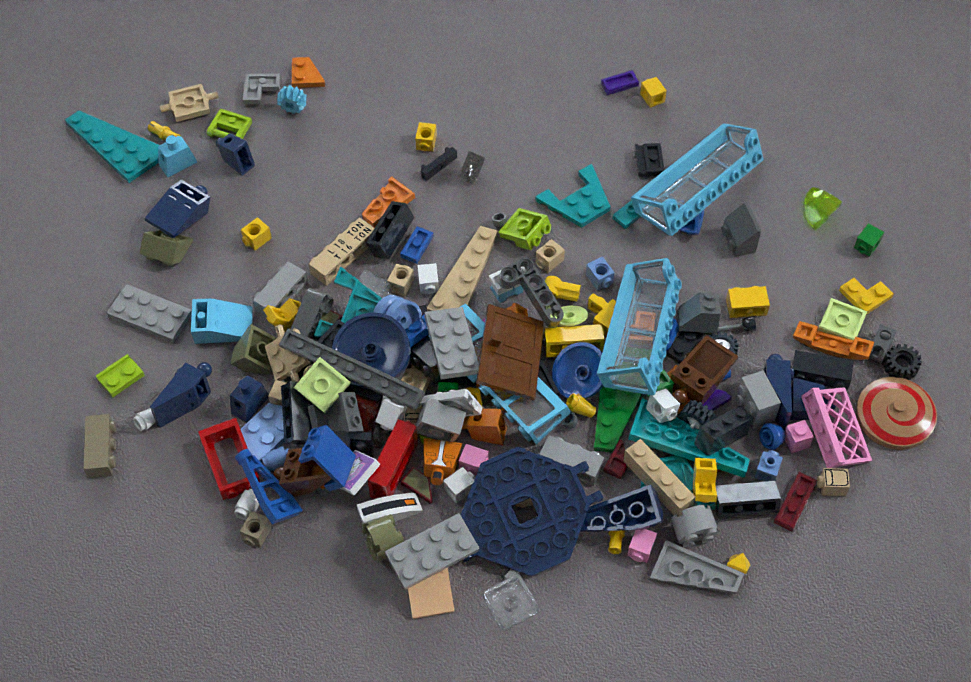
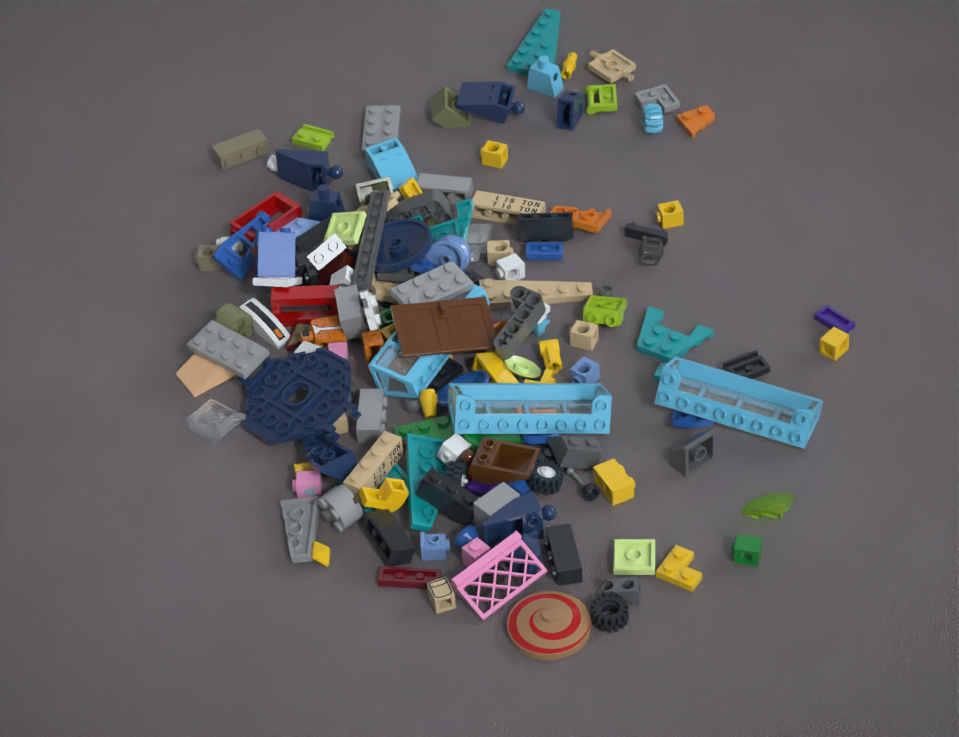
camera: 70 degrees right, 15 degrees down
(832, 345) = (602, 551): orange slope -> none

